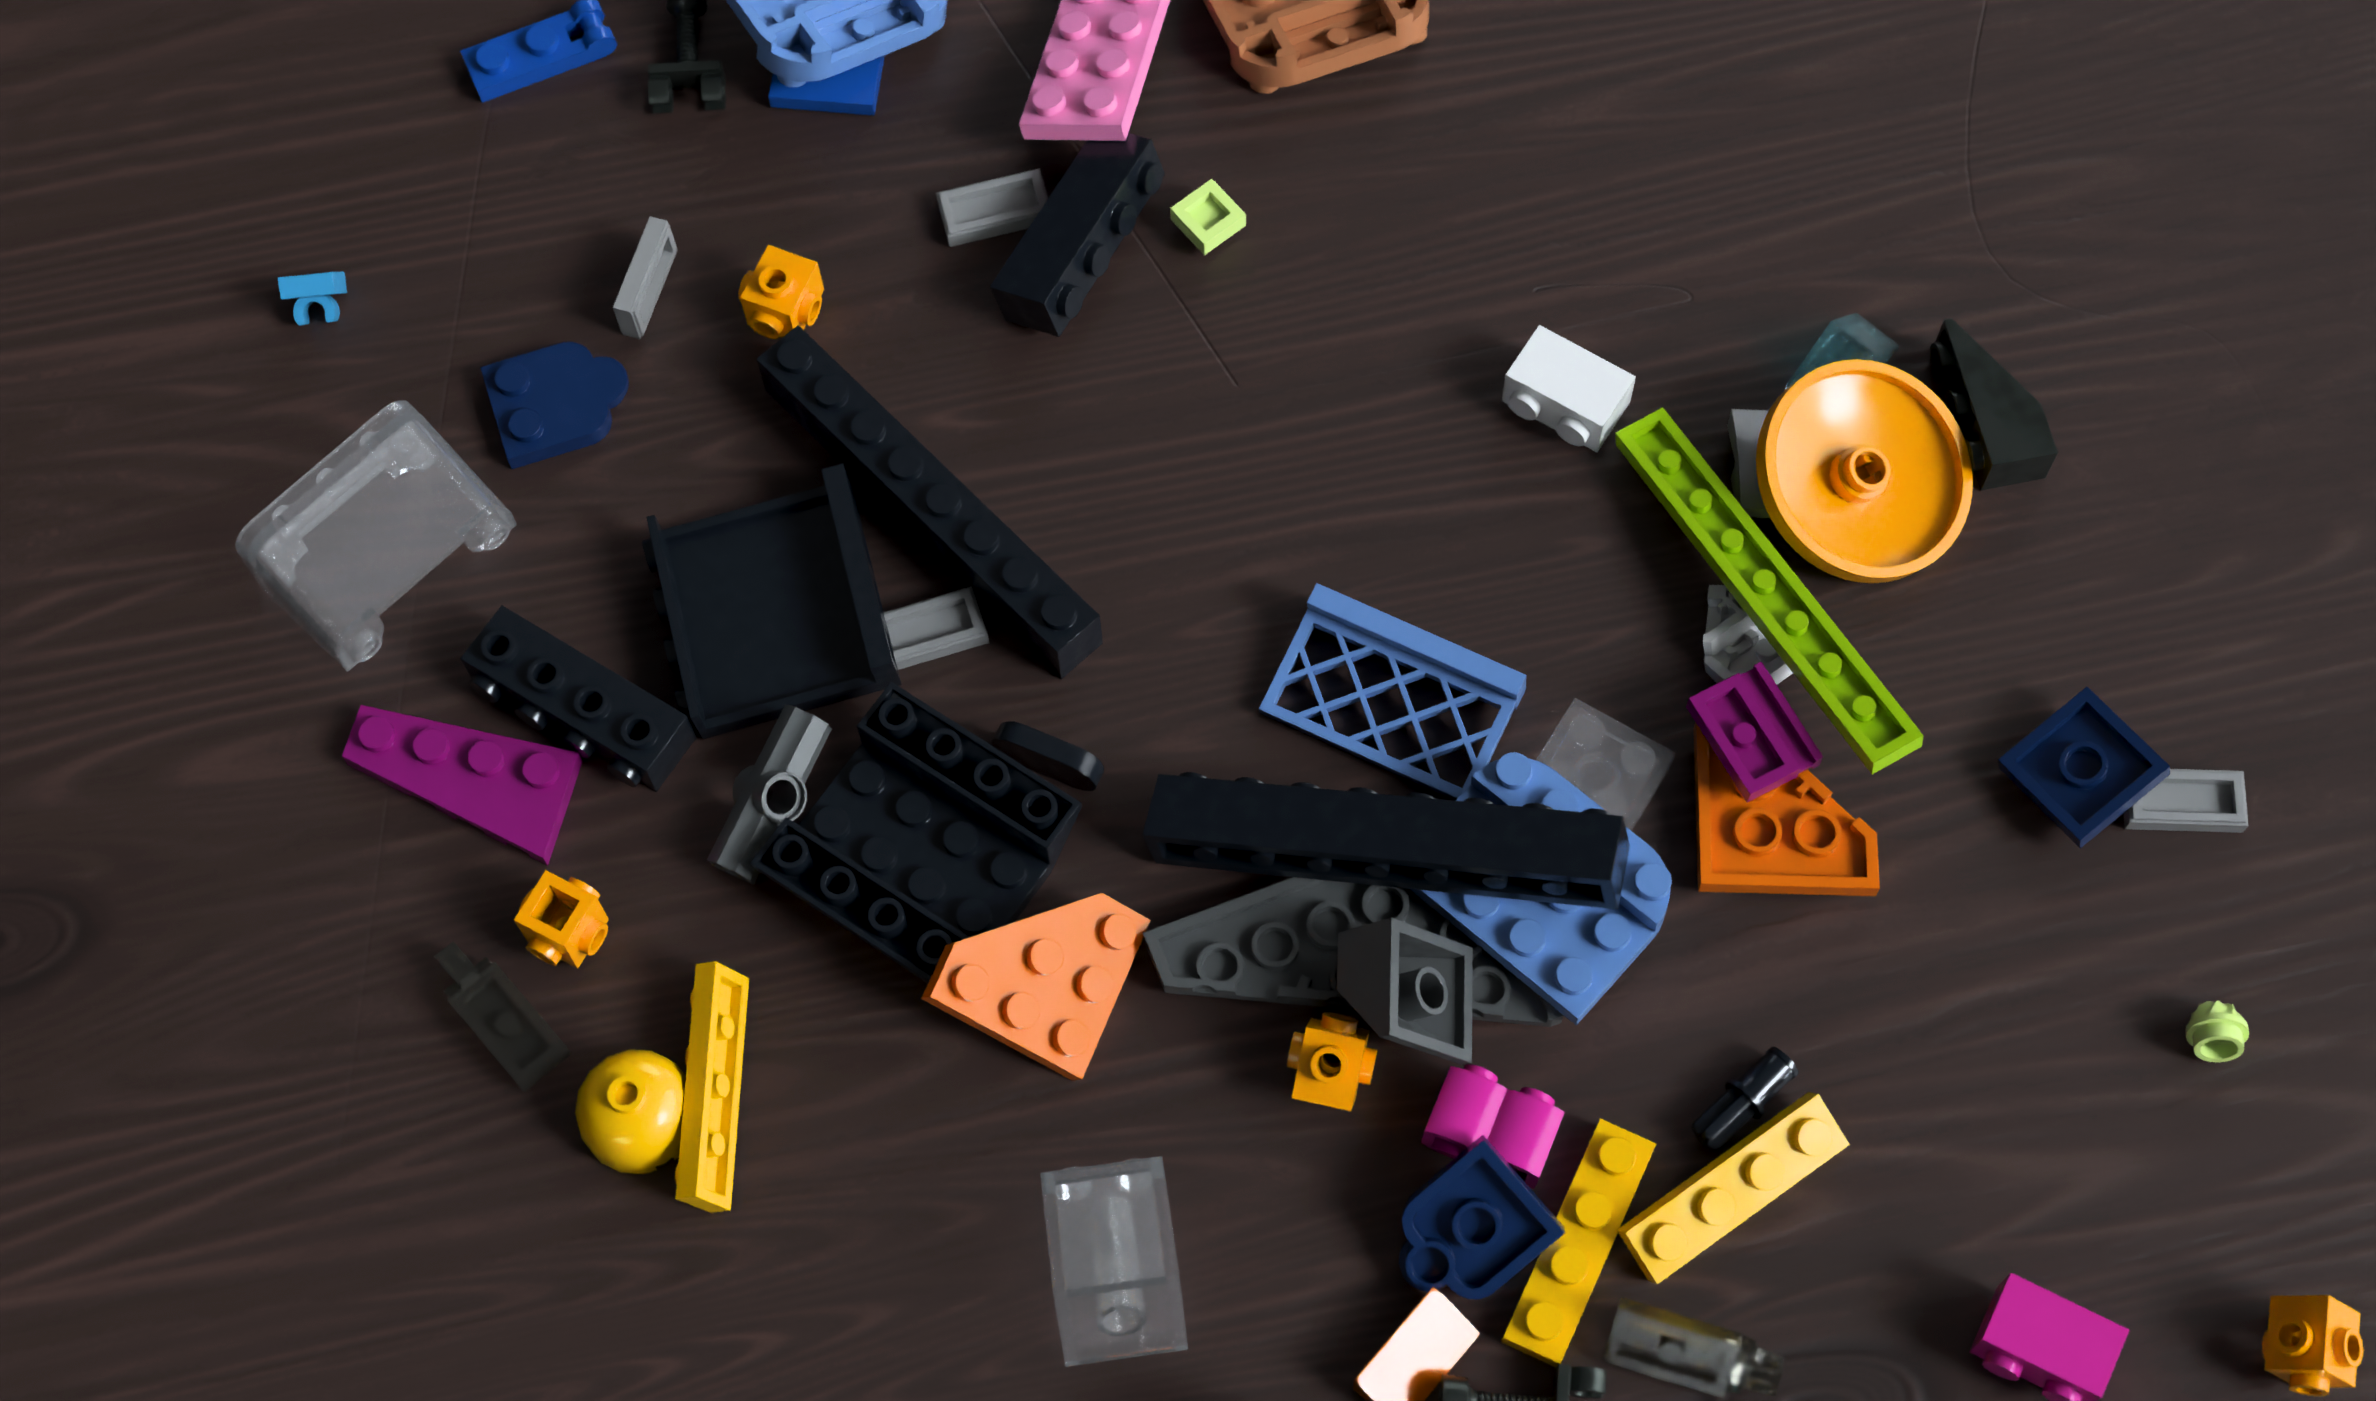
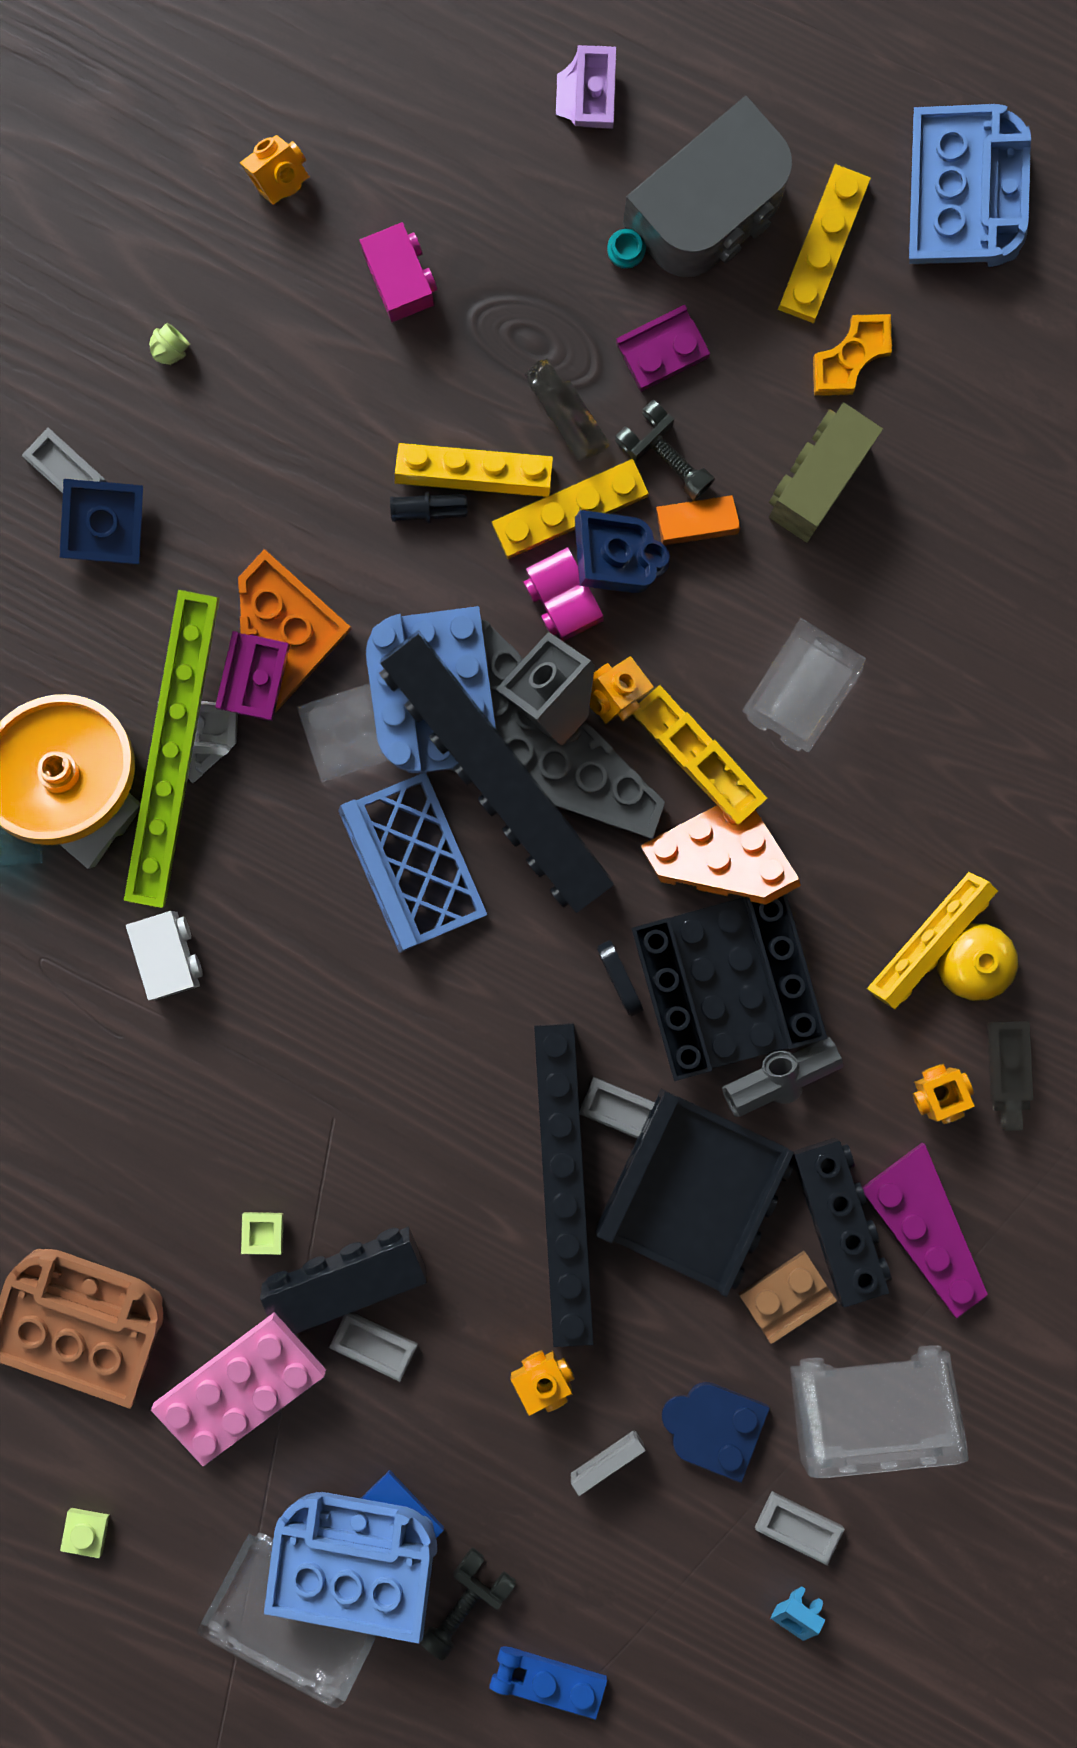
camera: 145 degrees left, 20 degrees up
(379, 376) = (799, 1528): none -> light grey tile
(578, 584) = (787, 1297): none -> medium nougat plate
(1170, 1070) = (699, 755): none -> yellow slope

